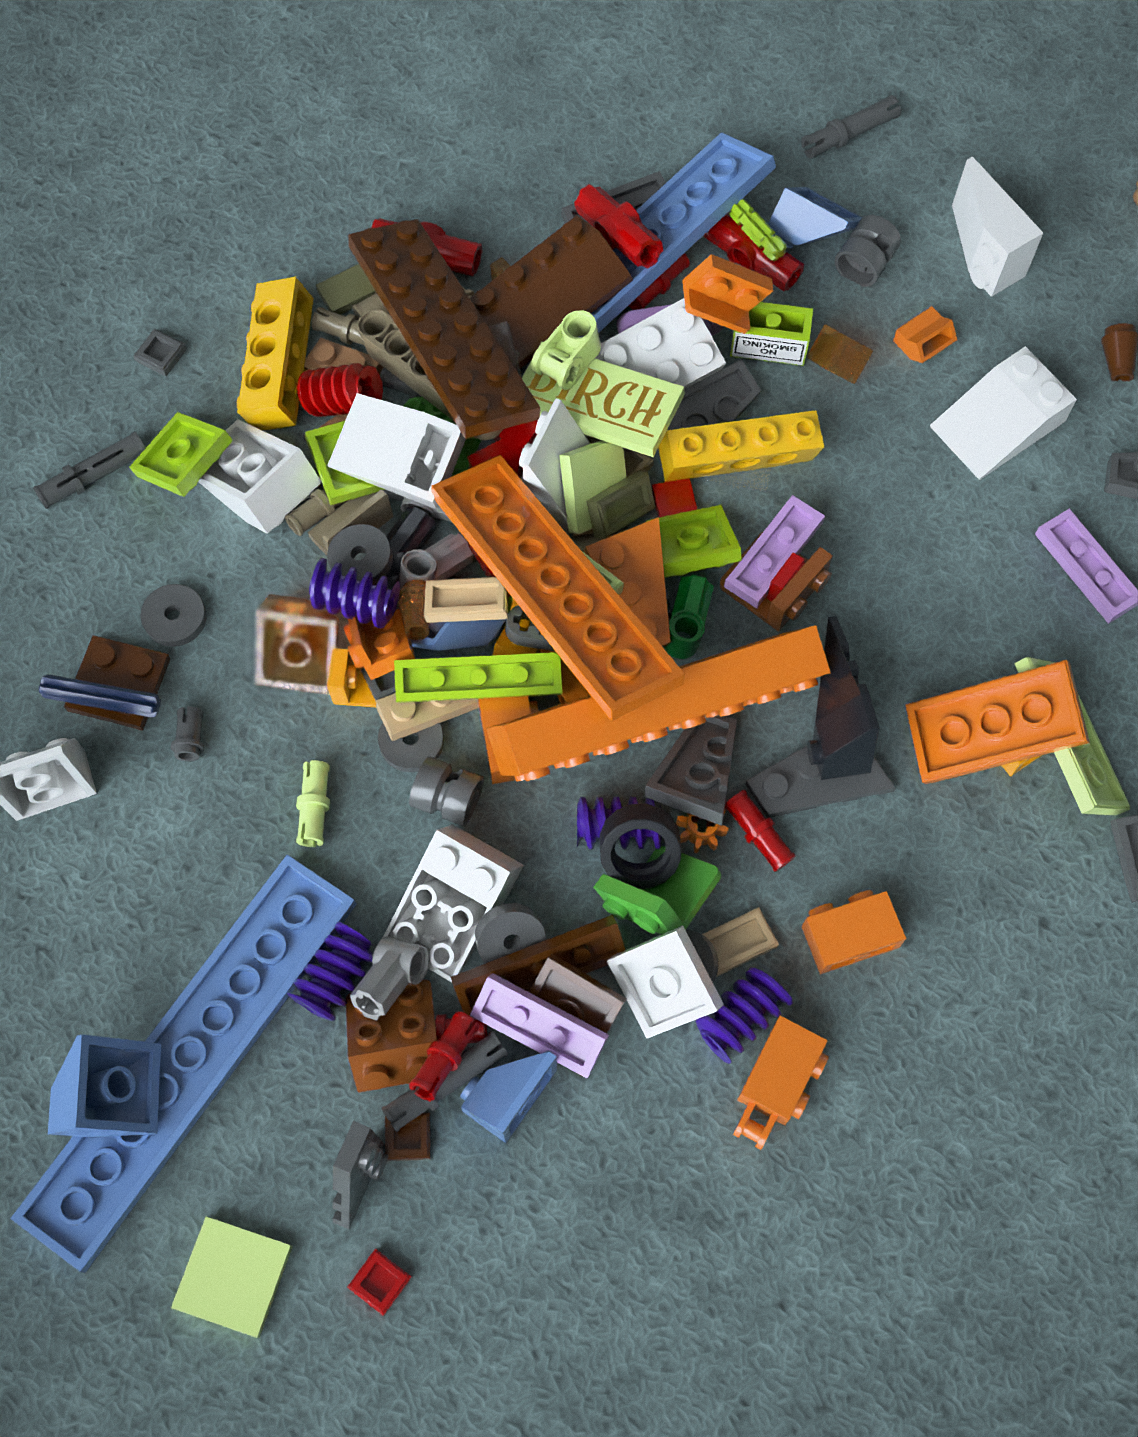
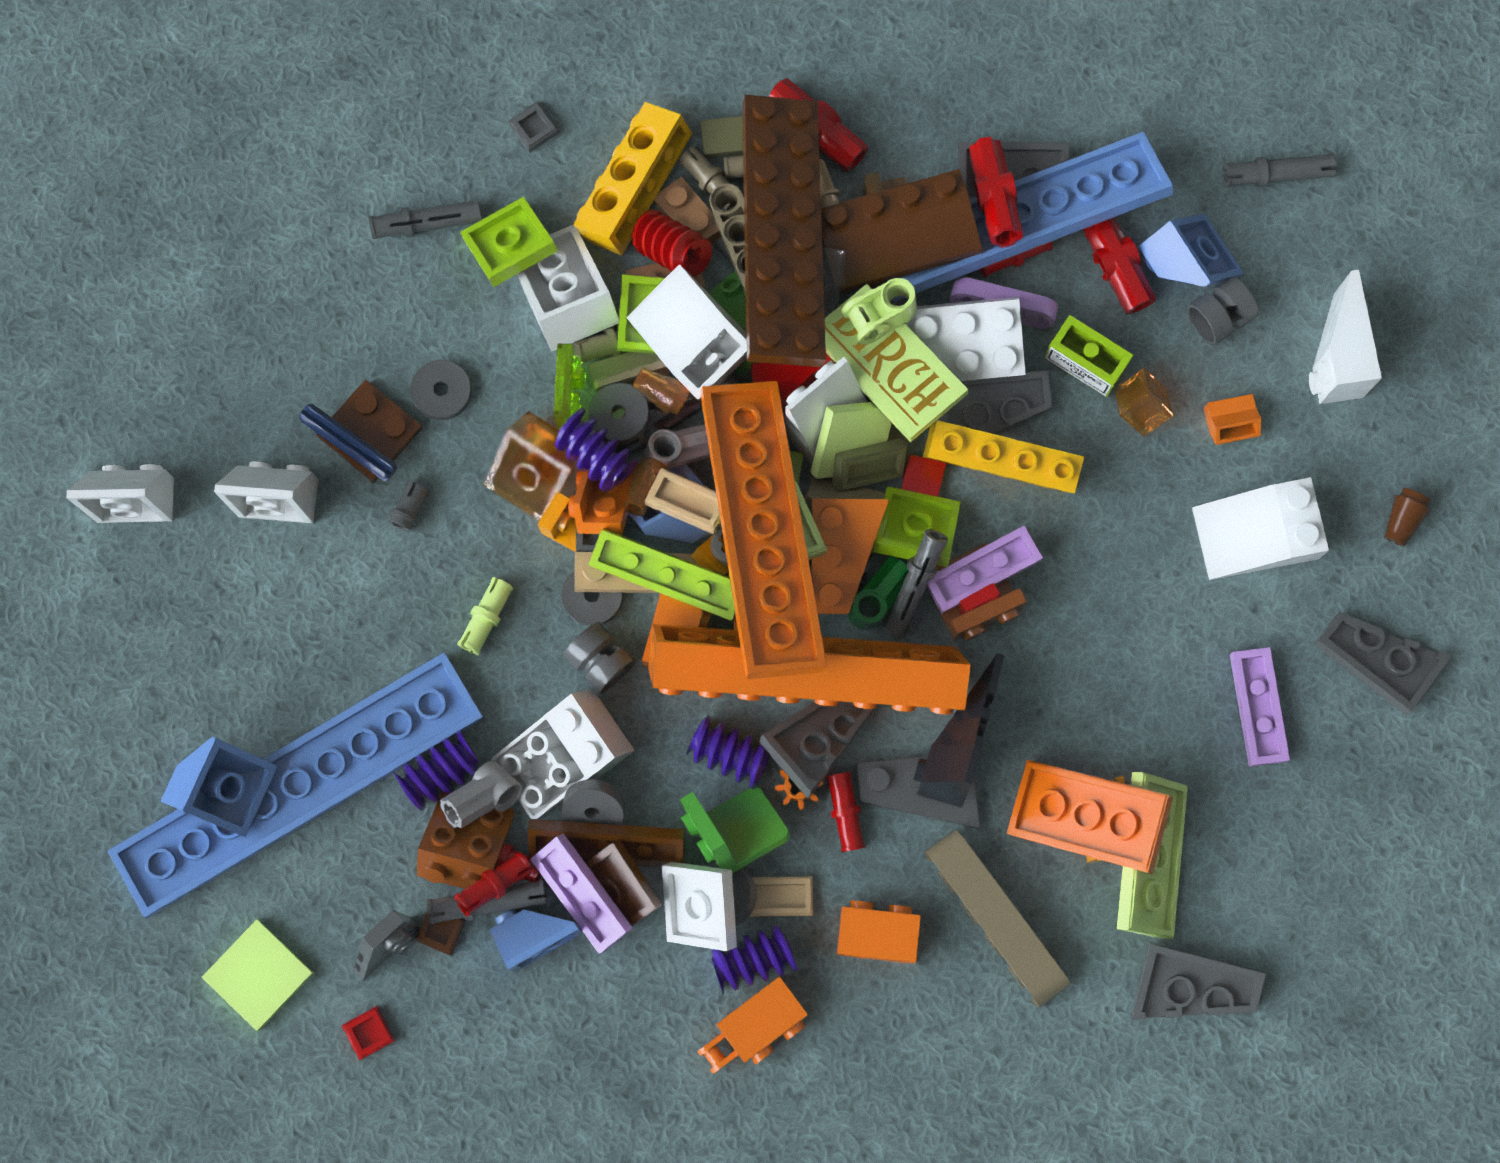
camera: 25 degrees right, 10 degrees up
(297, 545) = (568, 379): none -> clear neon green plate
(394, 515) = (662, 390): none -> clear orange cone
(640, 817) = (742, 763): black tyre -> none
(719, 586) = (921, 570): none -> dark grey pin
(724, 292) = (1049, 314): orange bracket -> none
(758, 230) = (1126, 250): lime axle -> none
(959, 862) = (998, 917): none -> dark tan beam

